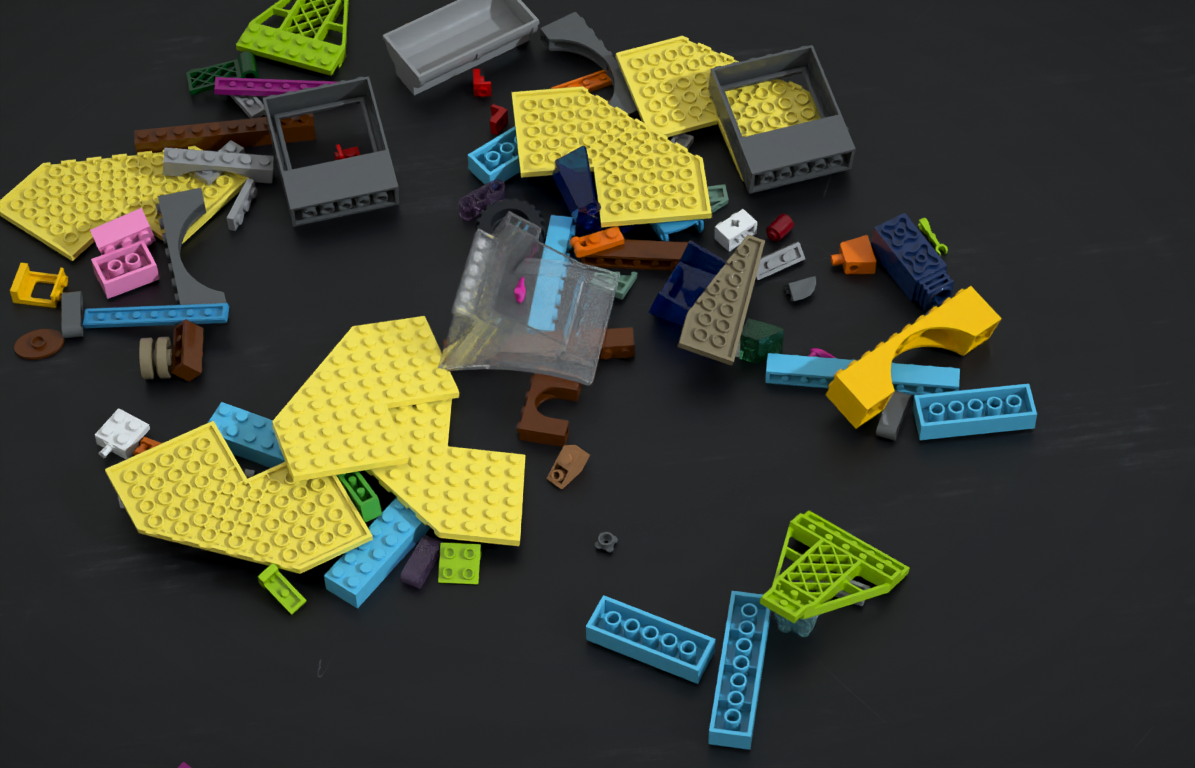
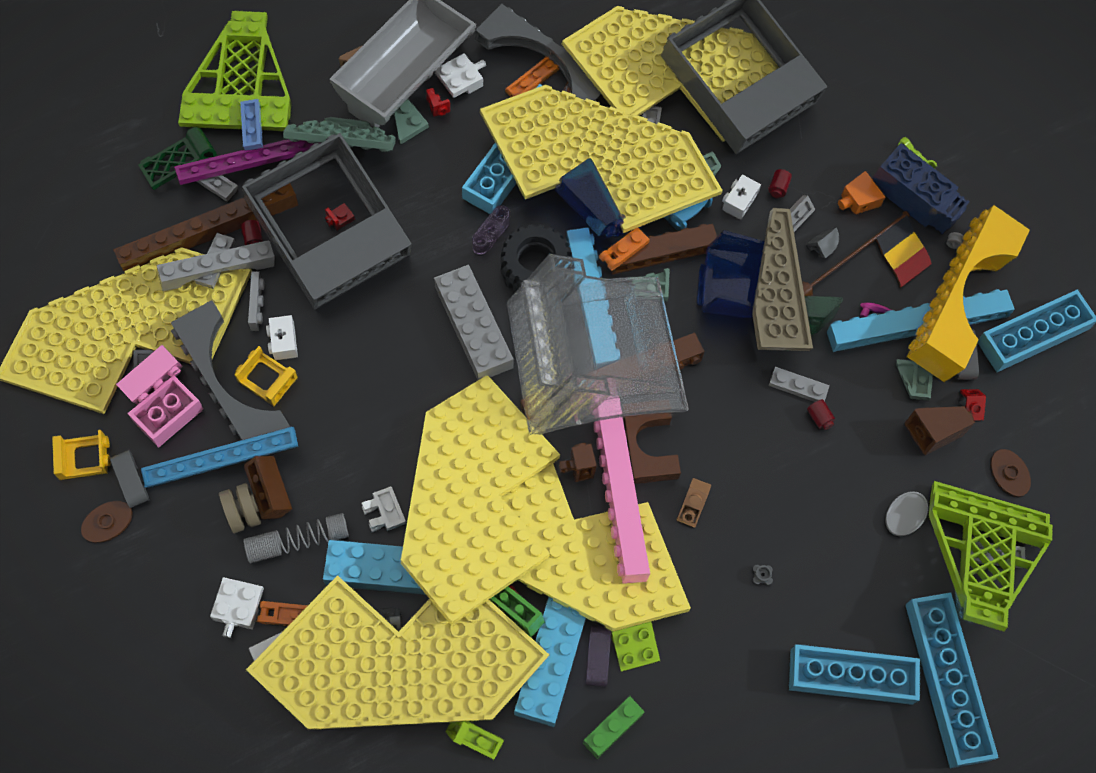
camera: 25 degrees left, 15 degrees up
(169, 396) = (268, 544): none -> light grey piece
(230, 279) = (286, 377): none -> yellow window
(253, 239) = (284, 328): none -> white brick
(263, 146) = (251, 232): none -> dark red brick
(285, 390) = (389, 510): none -> white plate
(299, 60) = (251, 124): none -> medium blue plate
(381, 85) = (353, 131): none -> sand green plate
(408, 618) = (613, 727): none -> bright green brick
(430, 269) = (473, 322): none -> light grey brick
(447, 94) = (409, 121): none -> sand green wing
(475, 403) = (581, 462): none -> reddish brown brick
(497, 438) = (622, 499): none -> bright pink brick
(499, 119) = (470, 135): red bracket -> none
(513, 66) = (461, 75): none -> white plate
(519, 291) = (576, 326): dark pink bar -> none
(717, 400) = (798, 385): none -> light grey plate
(725, 427) = (821, 414): none -> dark red brick
(767, 531) = (906, 513): none -> light grey piece
(833, 424) = (916, 379): none -> sand green wing
(833, 464) = (938, 426): none -> reddish brown slope
(874, 313) = (899, 248): none -> flag
(880, 460) = (975, 402): none -> red bracket
(891, 526) = (1010, 473): none -> reddish brown piece

